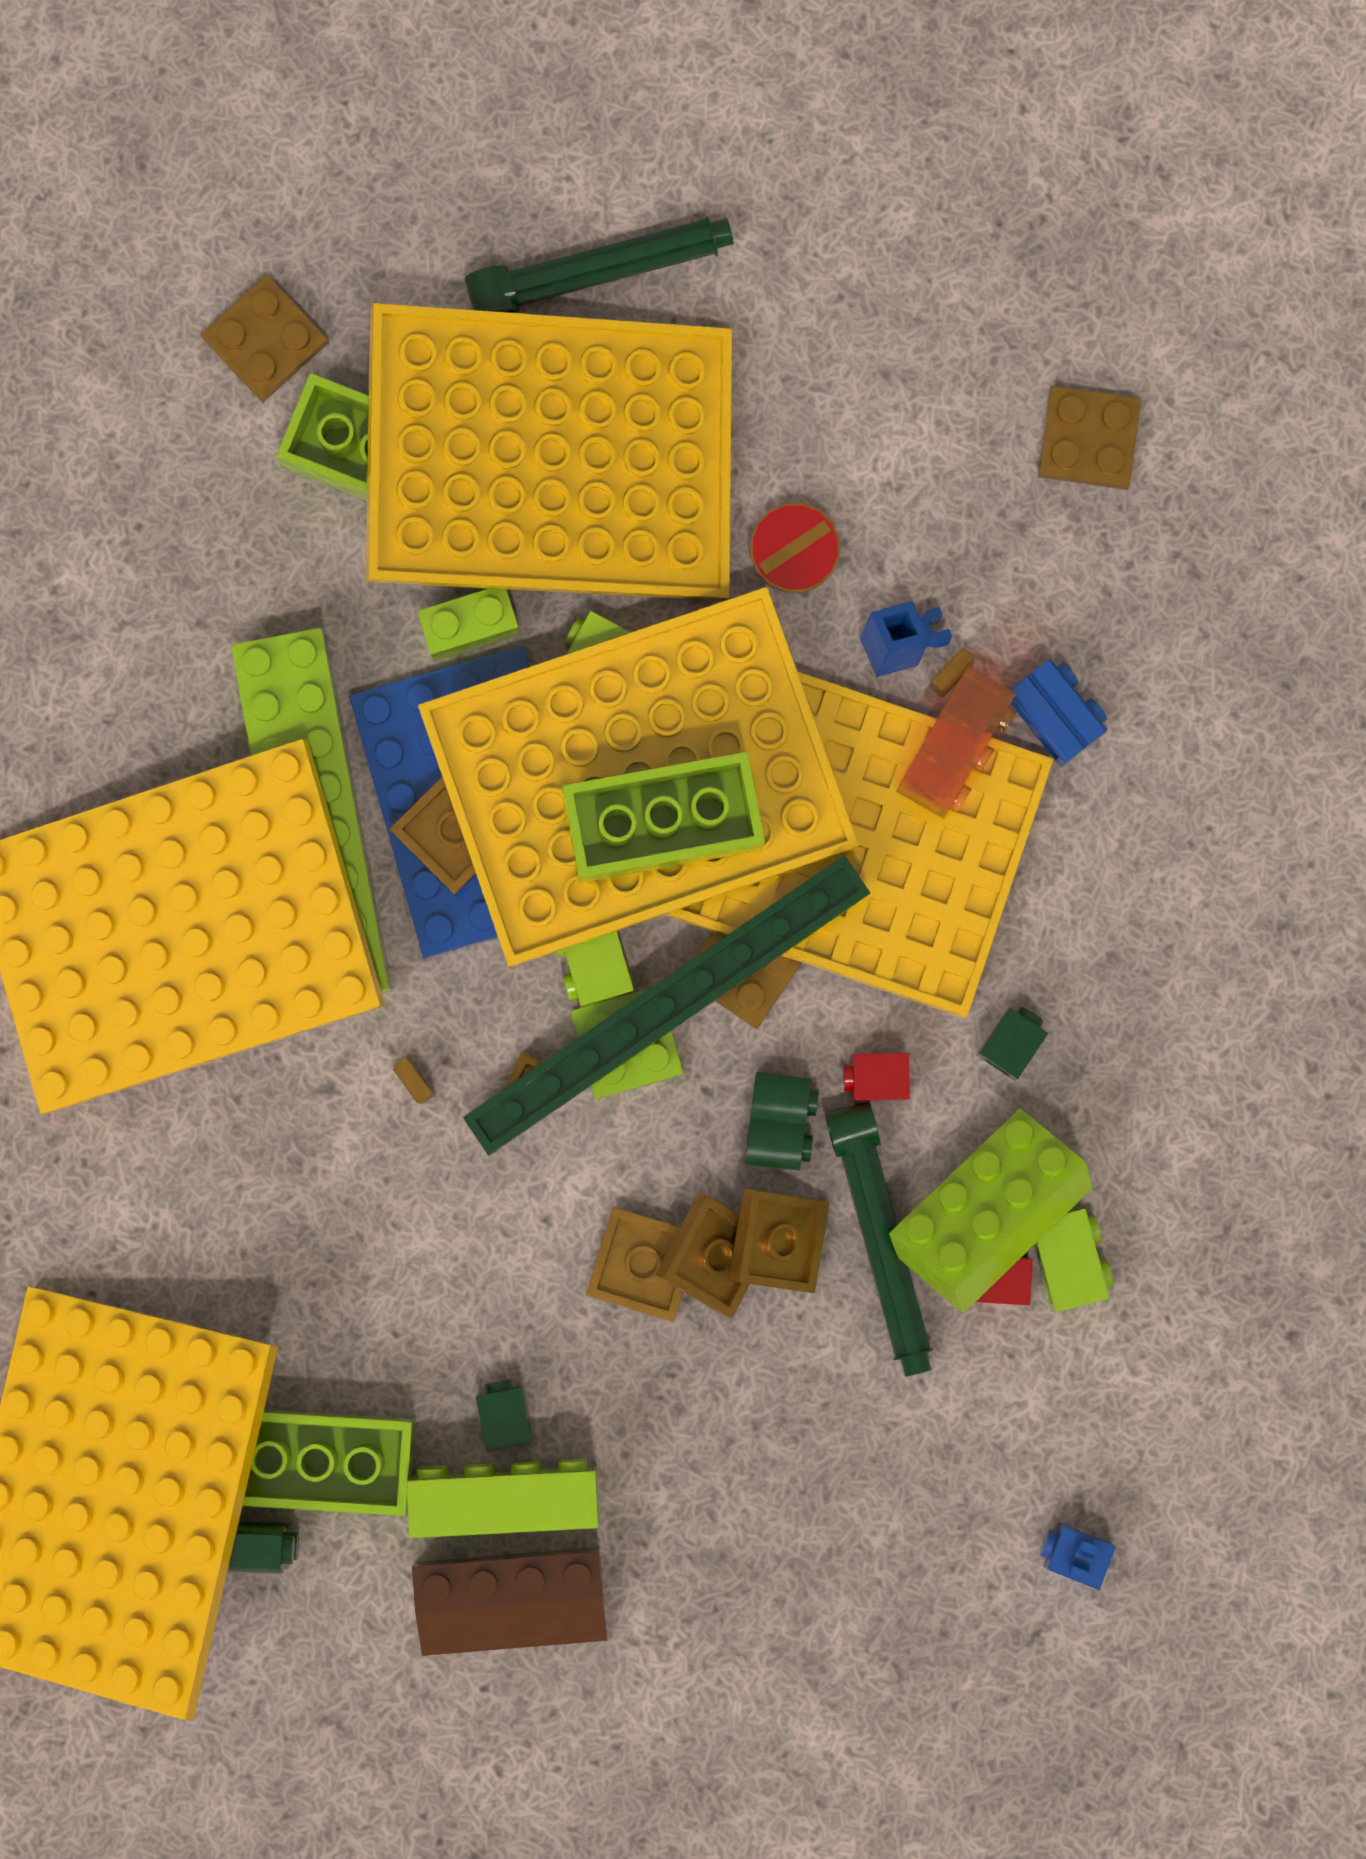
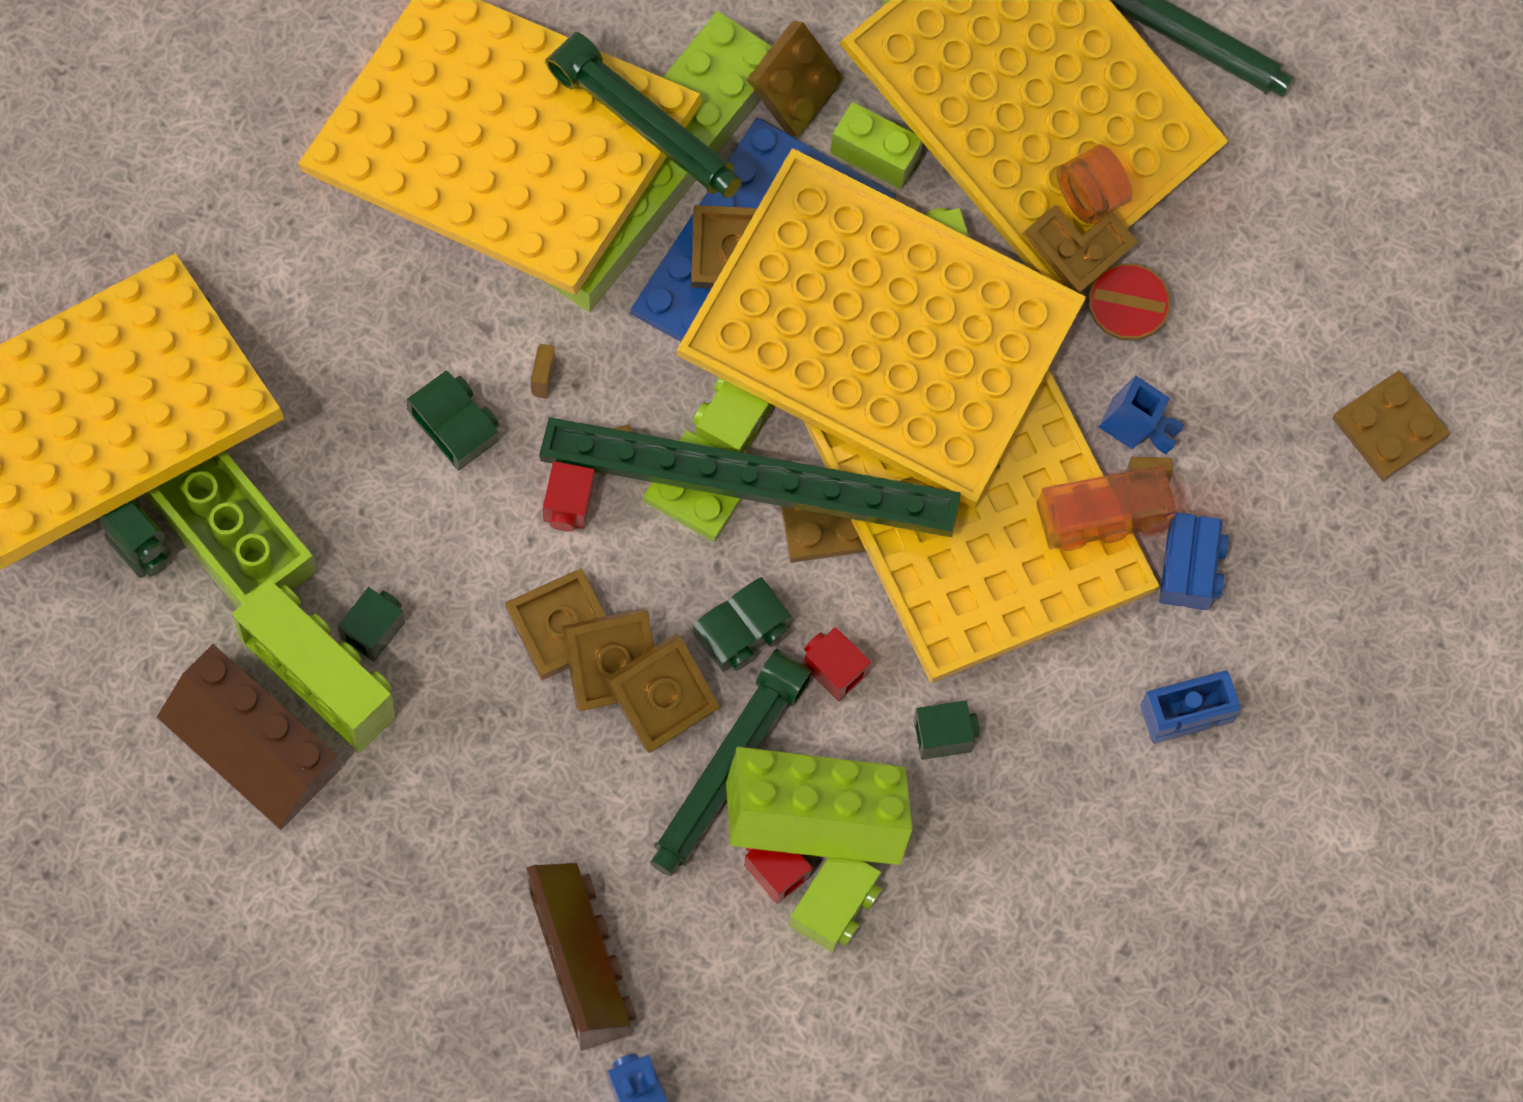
camera: 40 degrees right, 15 degrees down
(188, 816) = (581, 65): none -> dark green piece
(349, 635) = (795, 78): none -> pearl gold plate
(388, 1192) = (453, 420): none -> dark green brick
(542, 1161) = (568, 496): none -> red brick
(663, 817) = (870, 351): lime brick -> none
(679, 486) = (1094, 183): none -> clear orange piece
(725, 553) = (1075, 256): none -> pearl gold plate
(932, 1504) = (579, 954): none -> reddish brown slope
(1176, 833) = (1190, 706): none -> blue brick

